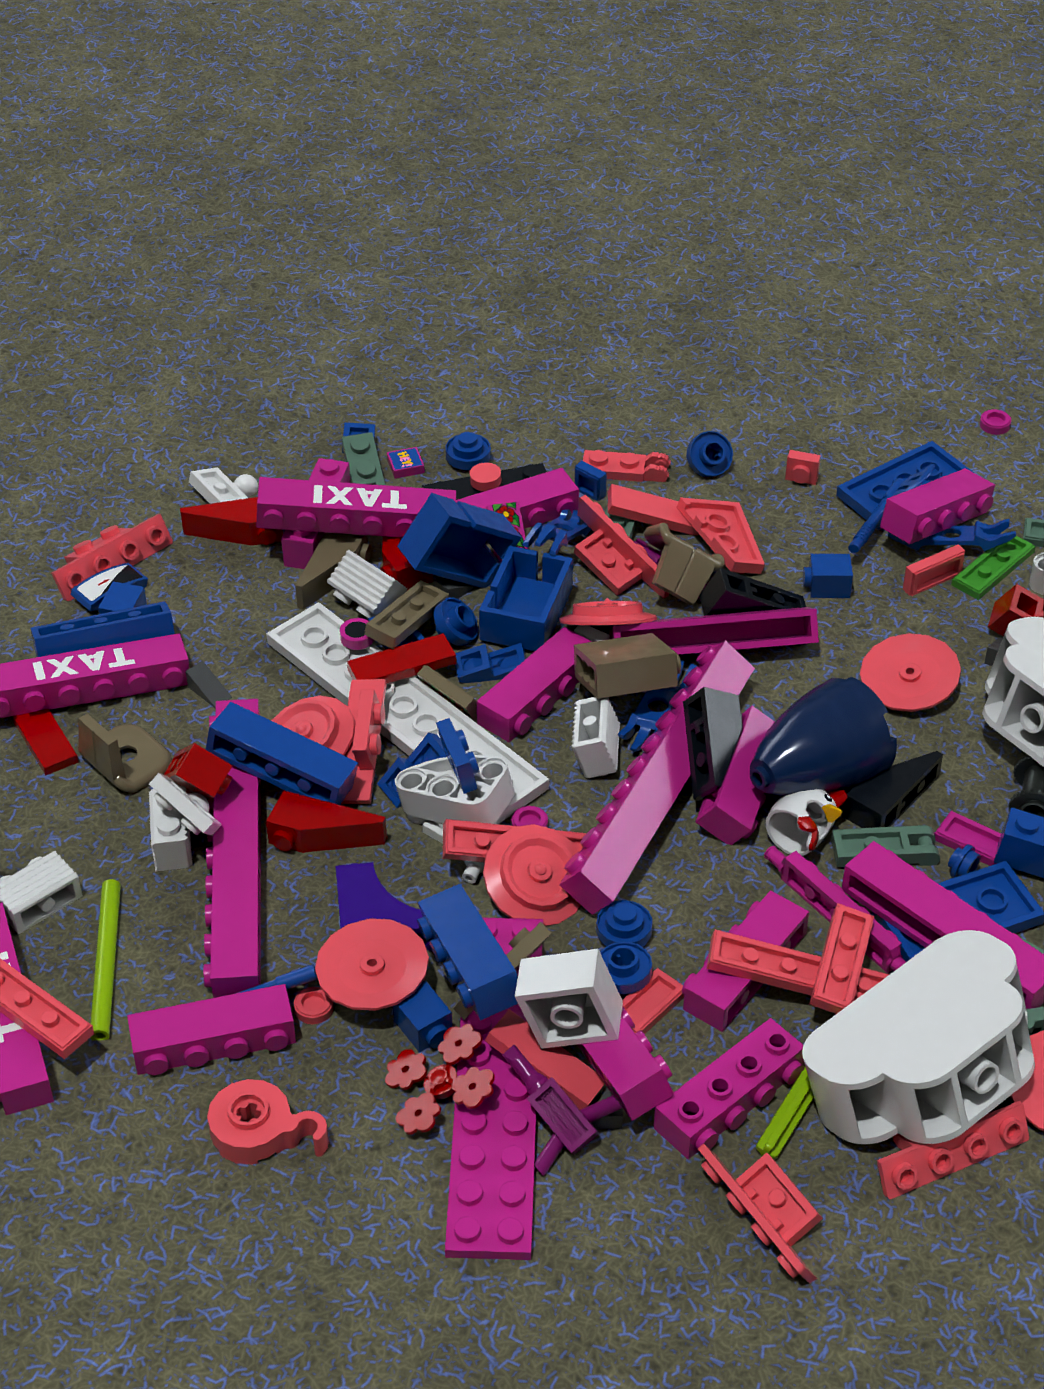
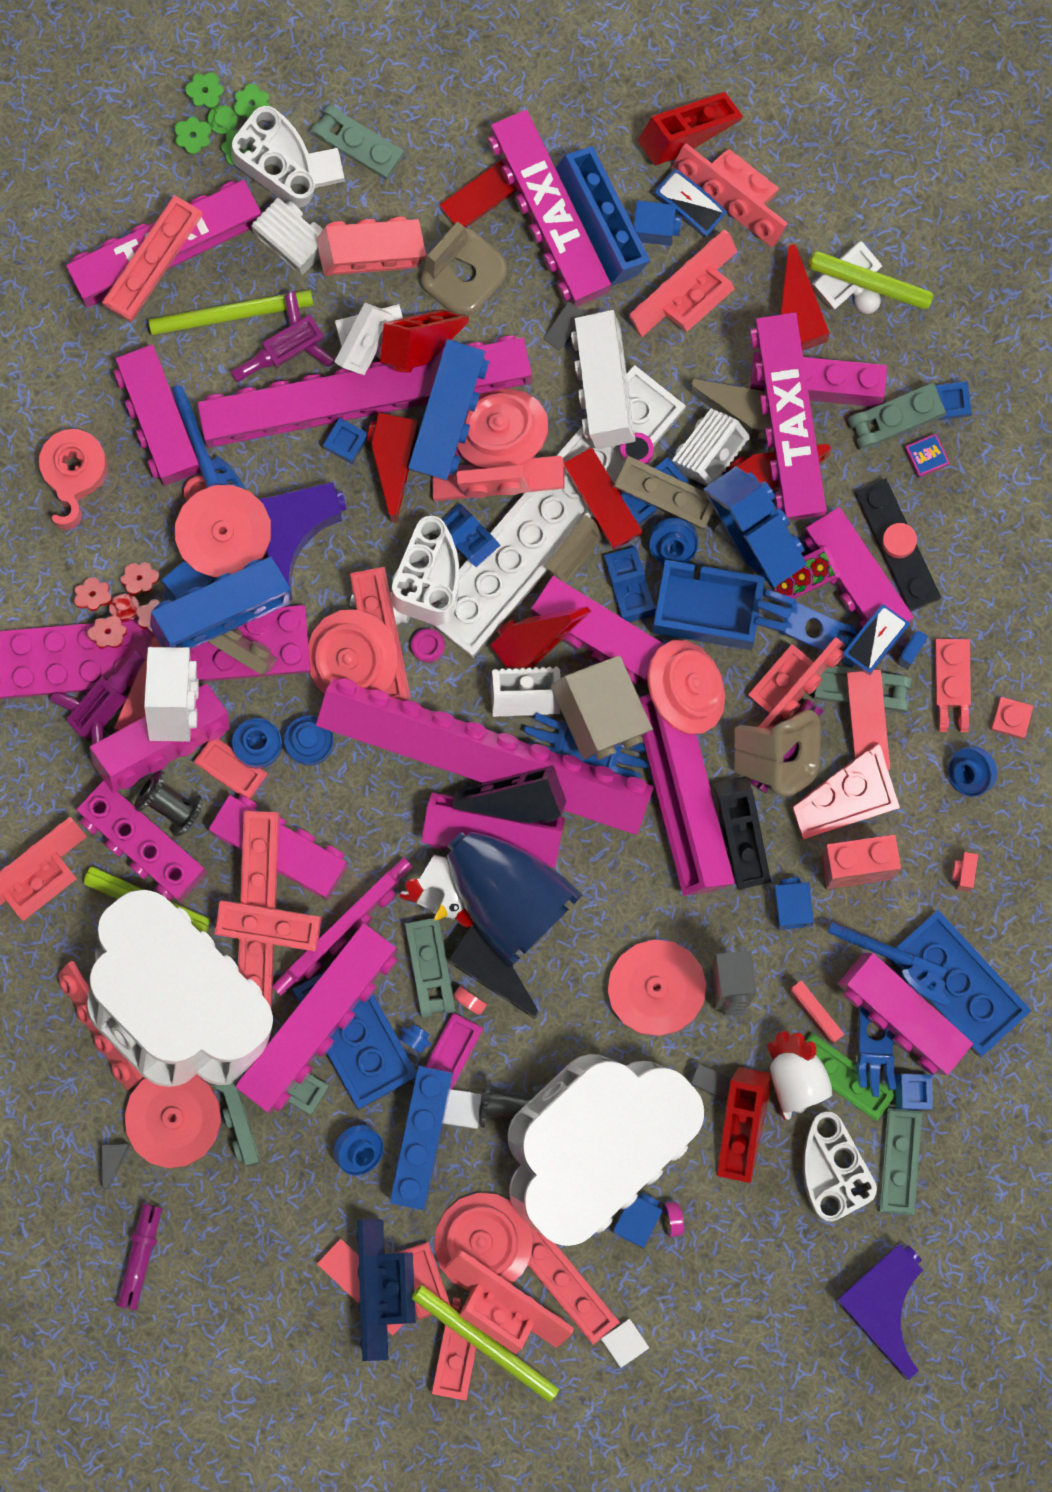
camera: 85 degrees right, 35 degrees up
(35, 580) = (687, 124): none -> red slope
(74, 812) = (371, 246): none -> coral brick
(159, 905) = (297, 338): none -> magenta piece
(205, 587) = (691, 290): none -> coral bracket
(229, 470) = (870, 280): none -> lime axle
(278, 645) = (604, 380): none -> white brick
(286, 866) = (345, 441): none -> blue plate
(462, 763) = (431, 568): blue plate -> none
(467, 450) = (948, 517): blue plate -> none
(540, 713) = (532, 639): none -> red slope
(581, 481) = (876, 639): none -> slope
(660, 435) = (1012, 718): none -> coral plate
(698, 1041) = (168, 803): none -> pearl dark grey hose
(794, 513) = (860, 861): none -> coral brick
(917, 579) = (733, 982): none -> dark grey brick
(922, 813) = (469, 1000): none -> coral tile
(995, 572) = (797, 1073): none -> white piece
(1016, 515) = (914, 1092): none -> plate

